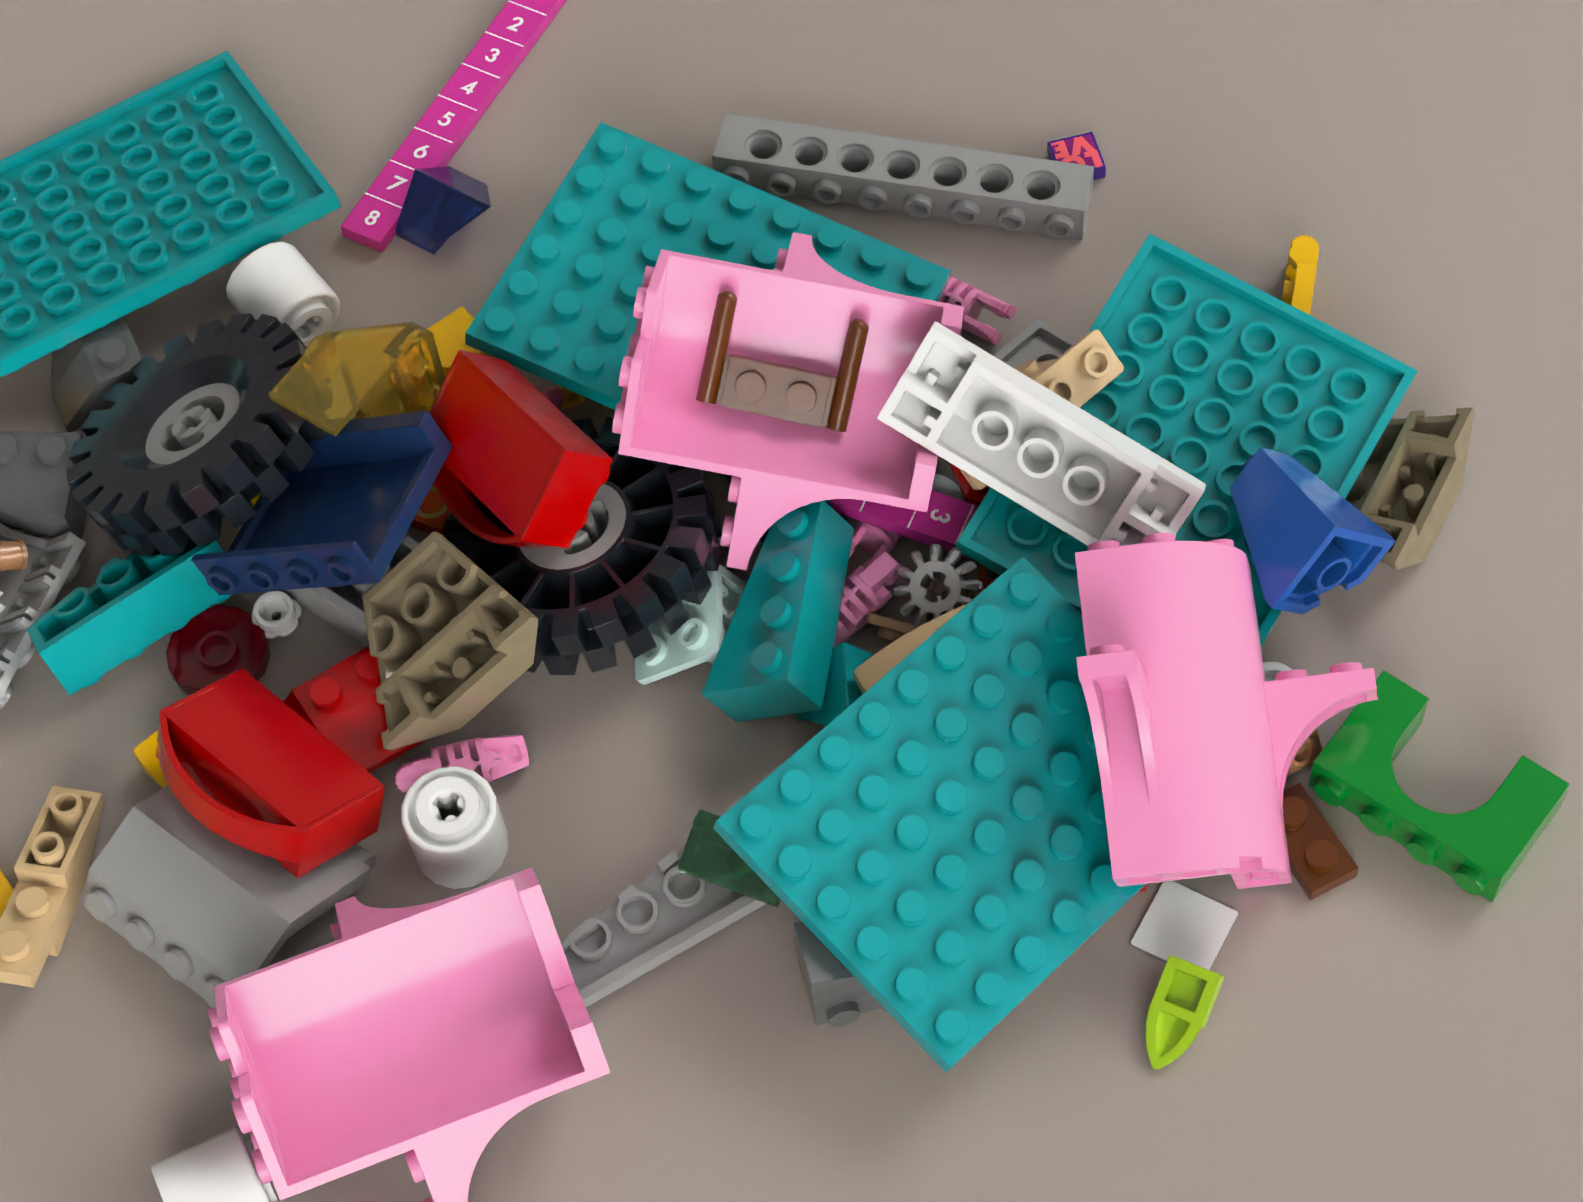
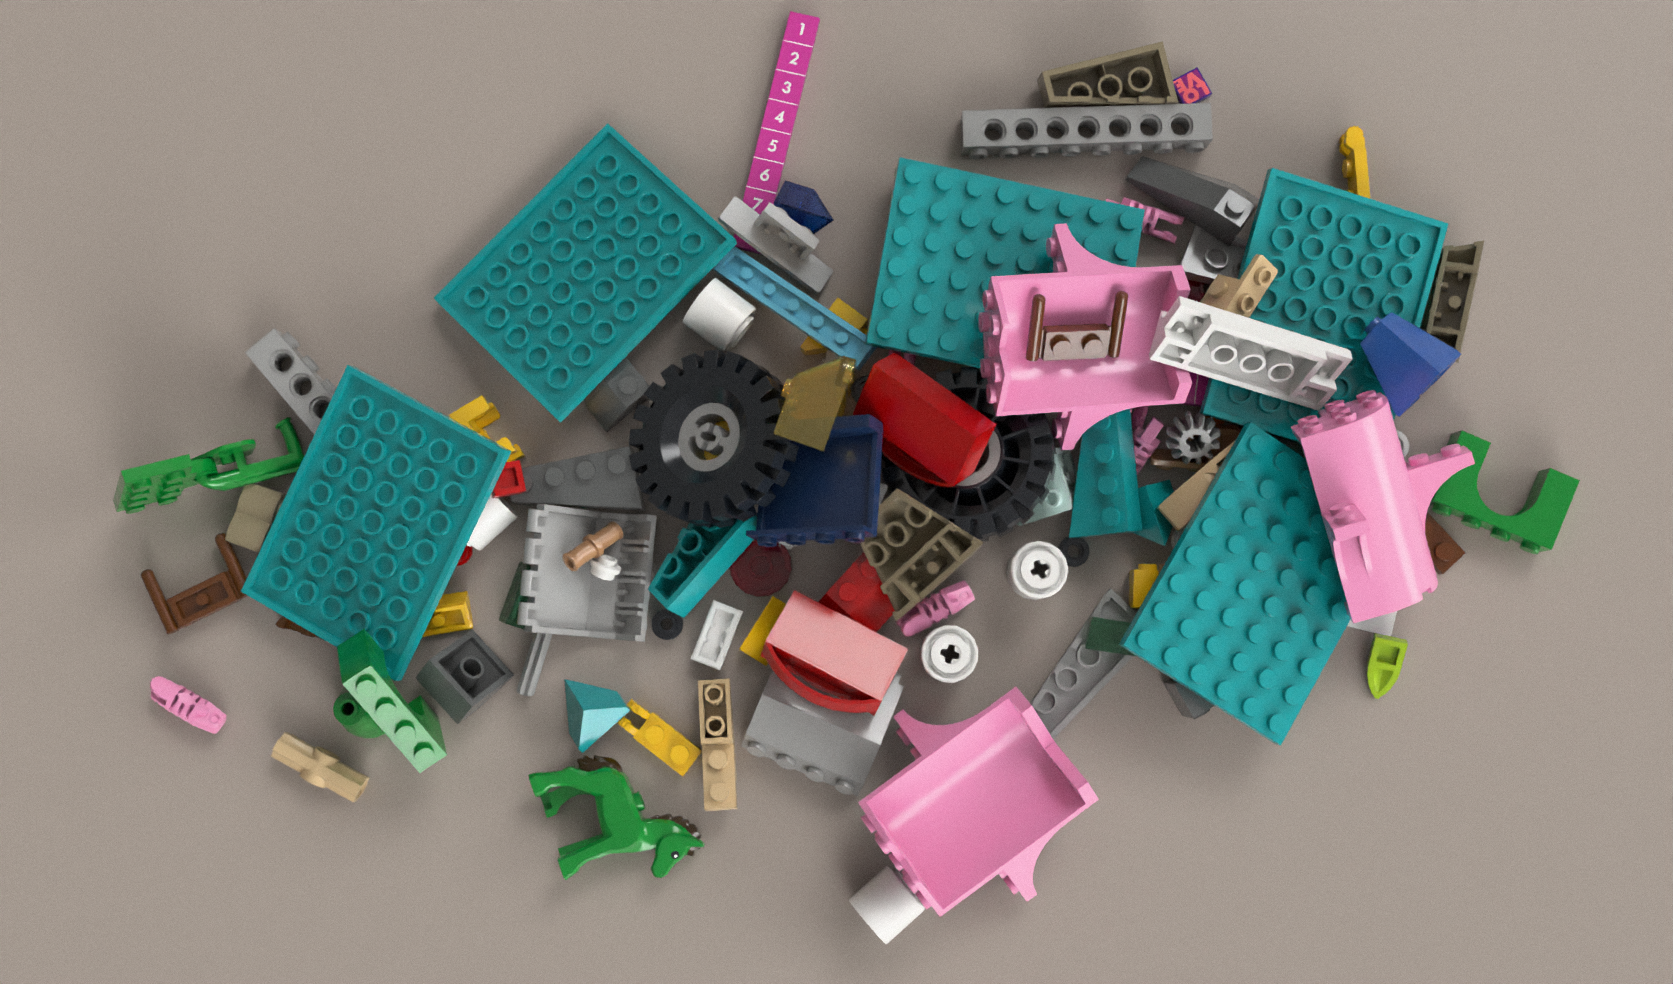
camera: 15 degrees left, 25 degrees up
(47, 713) = (667, 634): none -> black plate
(110, 732) = (716, 635): none -> white plate
(382, 290) = (794, 306): none -> medium azure plate
(408, 224) = (779, 240): none -> light grey bracket
(637, 736) = (1032, 586): none -> white piece
(710, 719) = (1083, 549): none -> black plate
(955, 110) = (1116, 79): none -> dark tan wedge
(1043, 287) = (1203, 200): none -> dark grey wedge

